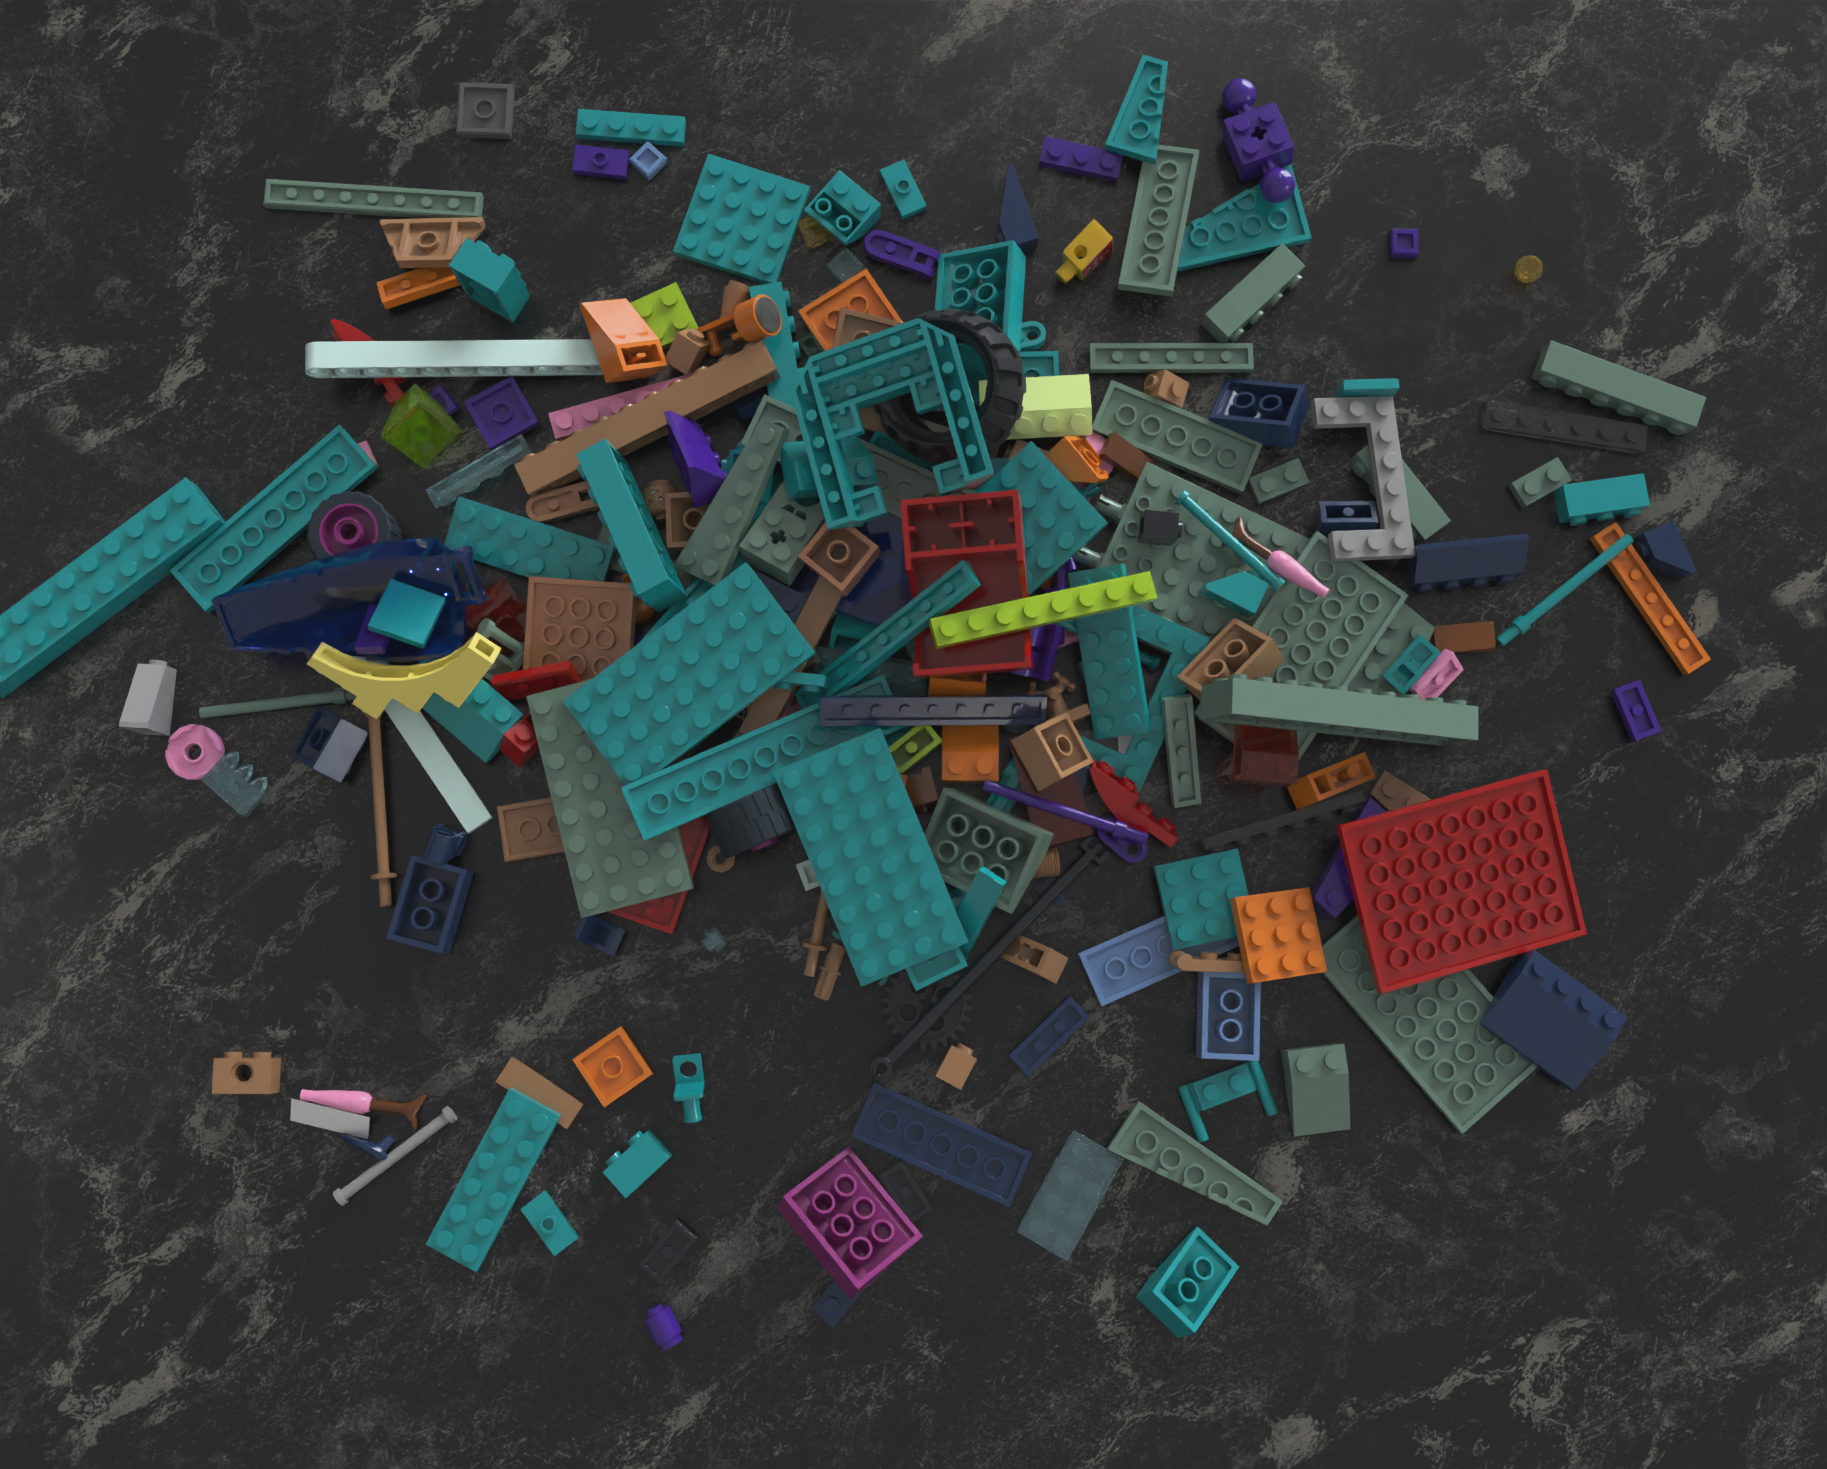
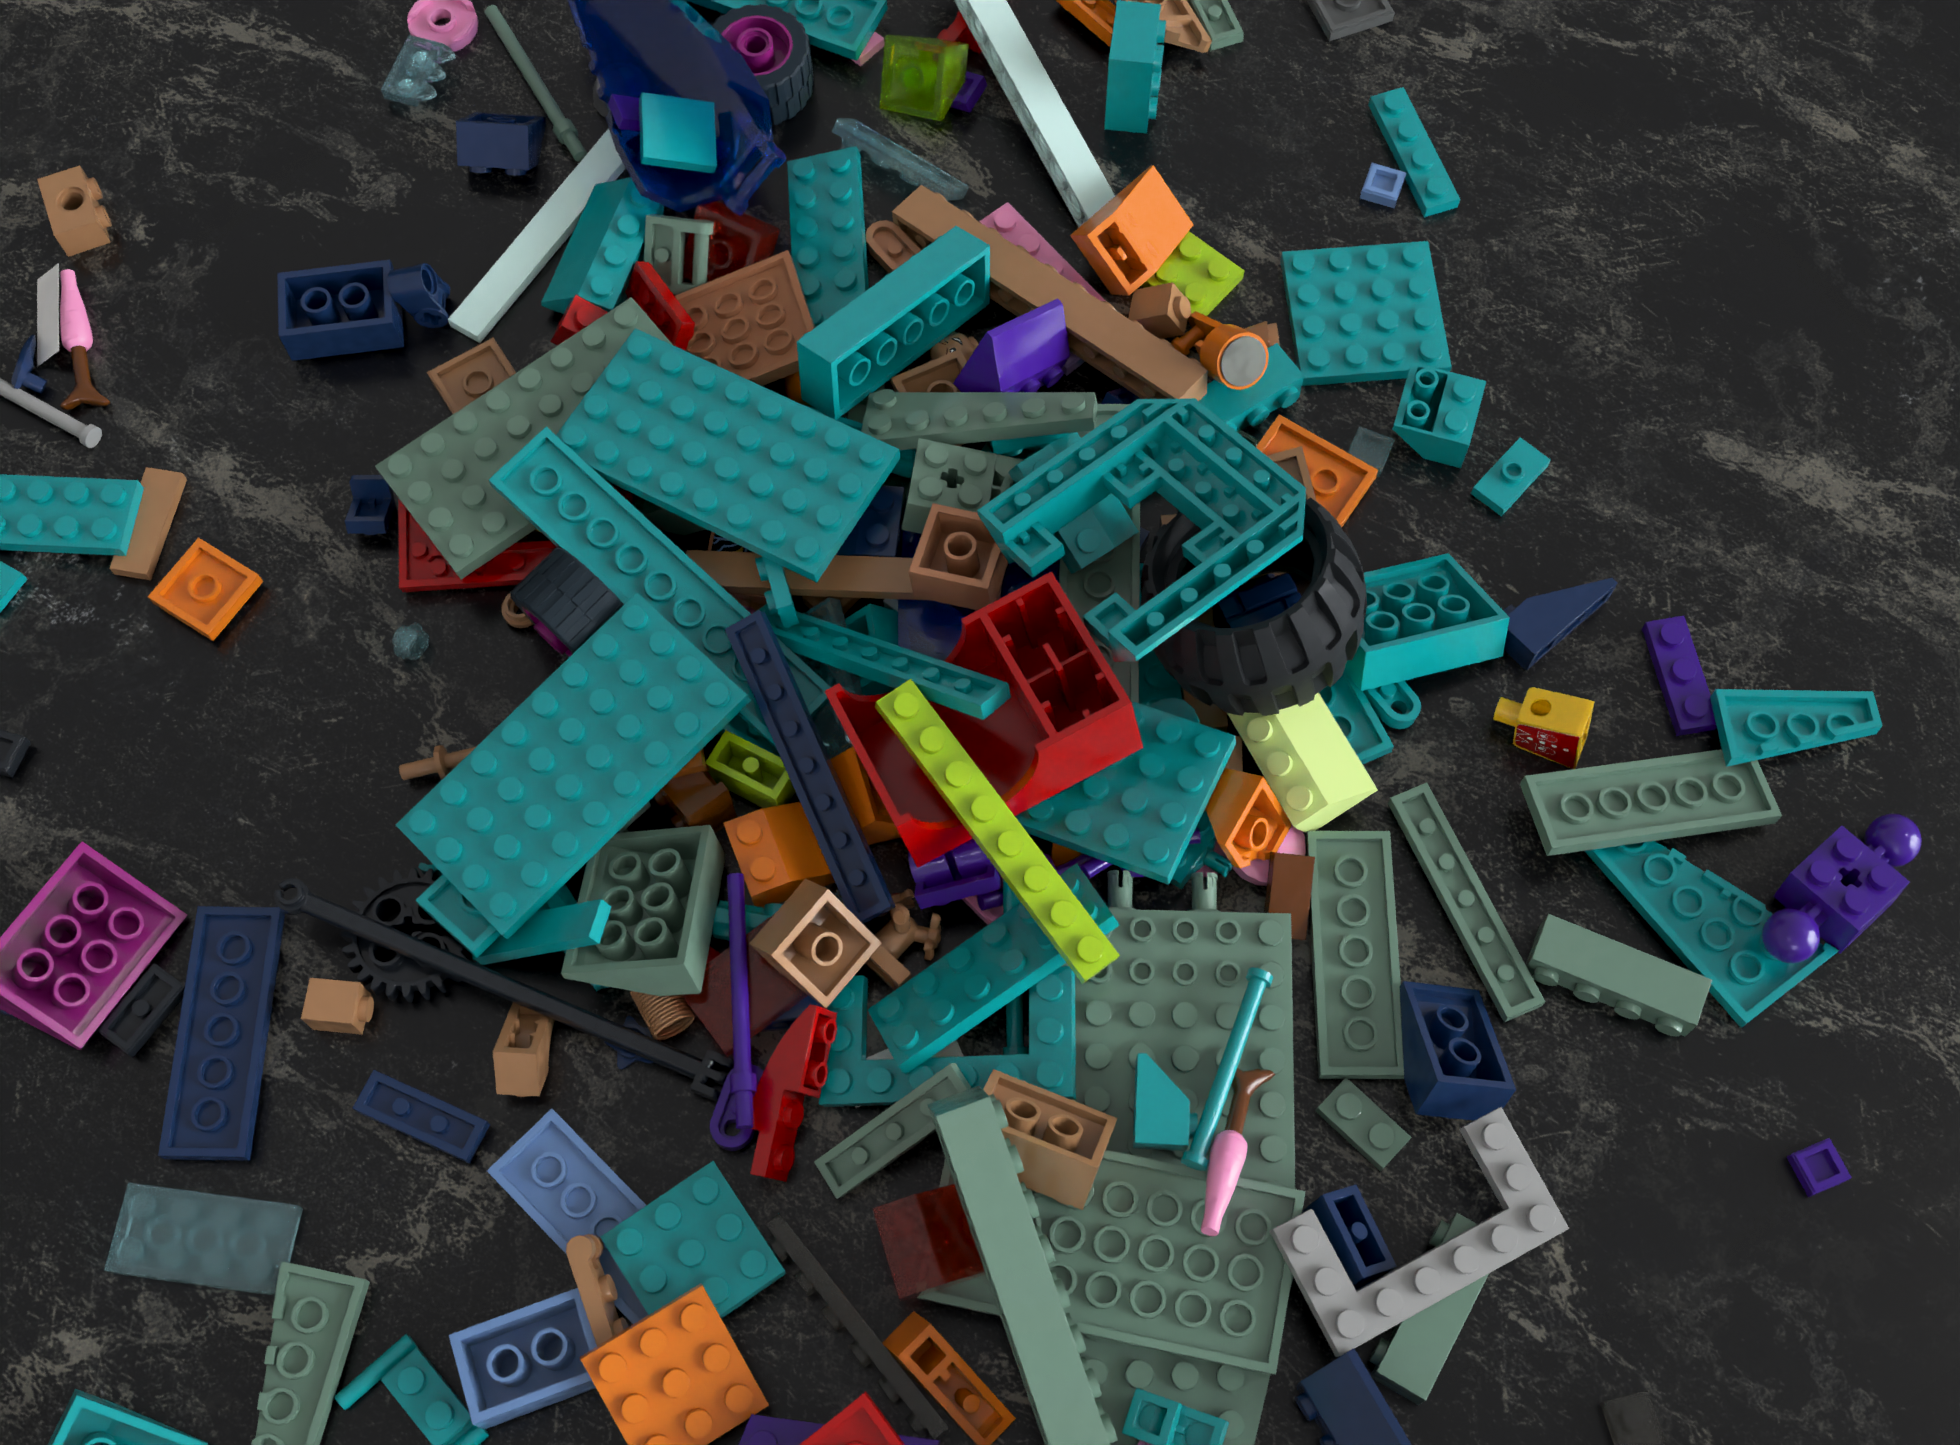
camera: 75 degrees right, 15 degrees down
(379, 812) = (556, 165): medium nougat bar -> none
(411, 685) = (592, 174): light yellow arch -> none
(501, 413) = (984, 155): dark purple plate -> none
(601, 162) = (1351, 137): dark purple plate -> none
(637, 1163) = (86, 663): teal brick -> none
(689, 1088) = (205, 687): teal bracket -> none
(813, 232) = (1389, 395): clear yellow tile -> none
(829, 971) = (401, 796): medium nougat axle -> none
(901, 253) = (1423, 505): dark purple plate -> none
(1159, 527) = (1199, 959): black brick -> none
(1166, 387) = (1418, 912): medium nougat bracket -> none
(1368, 388) = (1560, 1184): teal tile -> none
(1528, 268) = (1889, 1376): clear yellow plate -> none

